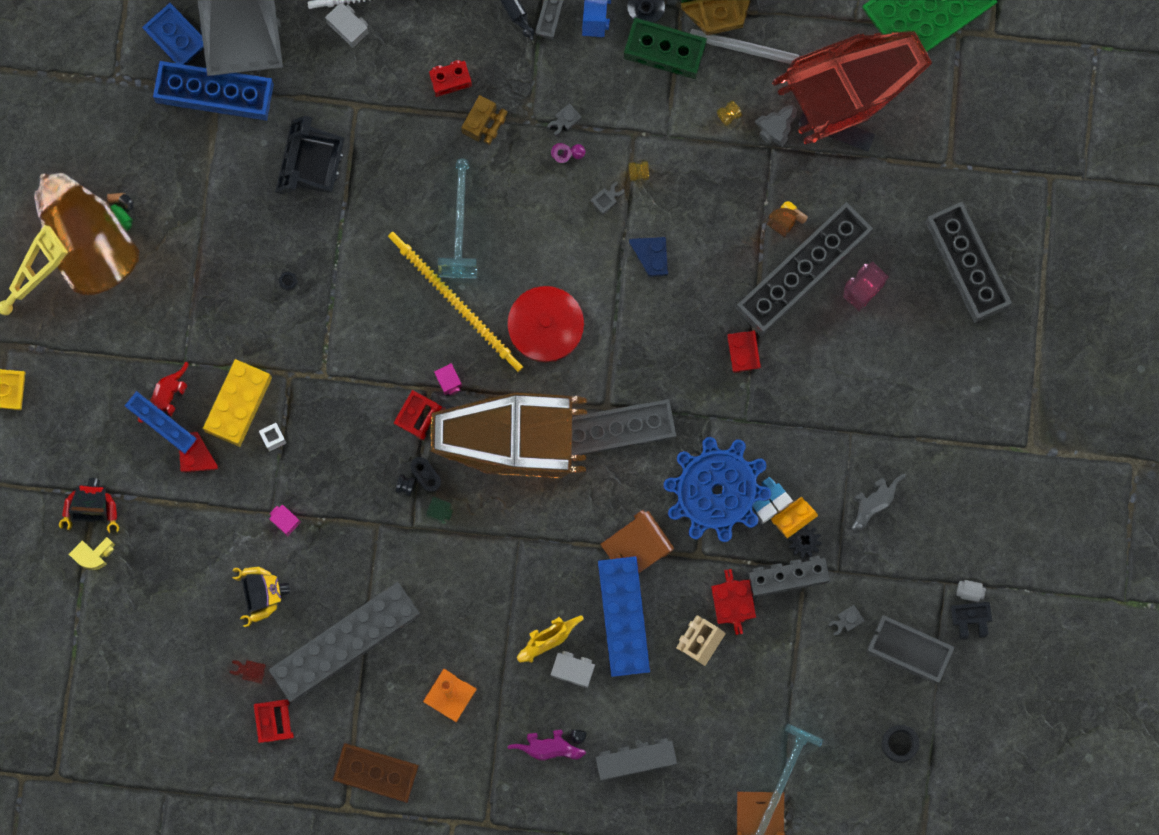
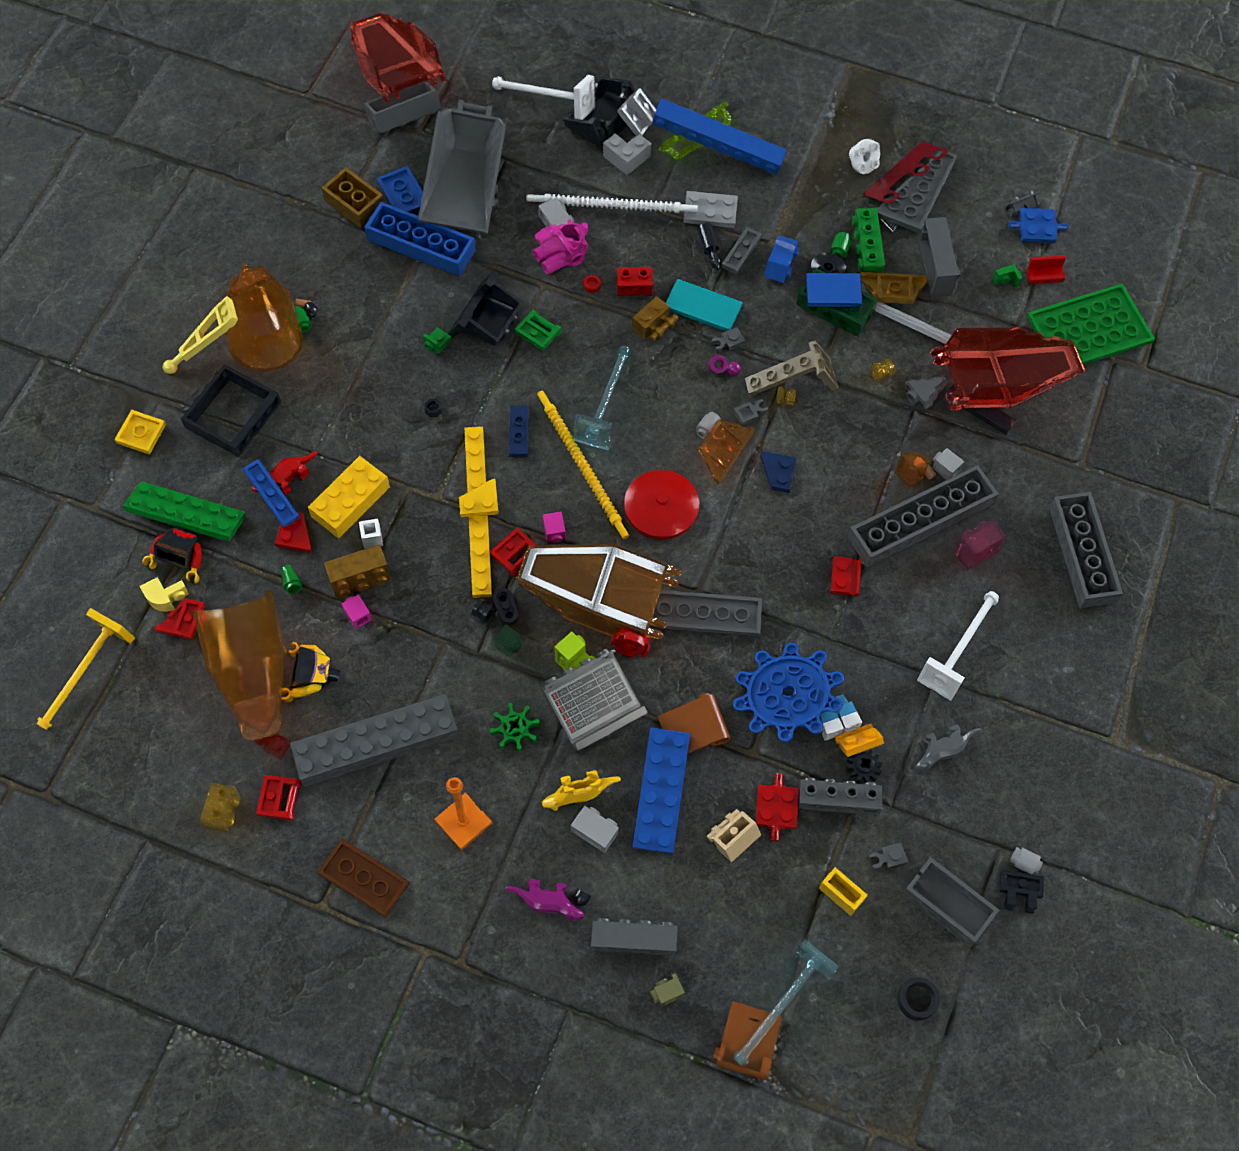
camera: 15 degrees right, 15 degrees down
(56, 605) = (109, 628): none -> yellow tile
(80, 462) = (184, 511): none -> green plate
(116, 346) = (253, 425): none -> black window
(120, 574) = (181, 620): none -> red wing
(126, 59) = (352, 197): none -> pearl gold brick
(200, 601) = (247, 661): none -> clear orange windscreen
(210, 506) = (291, 581): none -> green cone
(222, 745) = (220, 807): none -> clear yellow brick
(267, 203) = (436, 340): none -> green bracket
(274, 481) = (357, 571): none -> pearl gold brick
(361, 62) = (561, 246): none -> dark pink helmet
(364, 167) = (534, 333): none -> green plate
(367, 380) = (478, 524): none -> yellow plate
(368, 372) = (480, 501): none -> yellow wing
(381, 282) = (518, 431): none -> dark blue plate
(406, 91) = (592, 284): none -> red tile
(461, 591) = (517, 734): none -> green gear
(510, 513) = (571, 652): none -> lime brick
(528, 86) = (703, 305): none -> teal tile
(537, 548) = (593, 699): none -> panel
(555, 483) = (630, 643): none -> red plate
(569, 225) = (706, 424): none -> light grey brick
(591, 245) = (723, 447): none -> clear orange wing
(659, 40) = (833, 289): none -> blue tile
(663, 128) = (793, 368): none -> dark tan bracket
(677, 799) = (667, 991): none -> olive brick
(812, 666) = (843, 891): none -> yellow brick
(816, 203) = (947, 464): none -> light grey brick
(856, 435) = (940, 676): none -> white tile

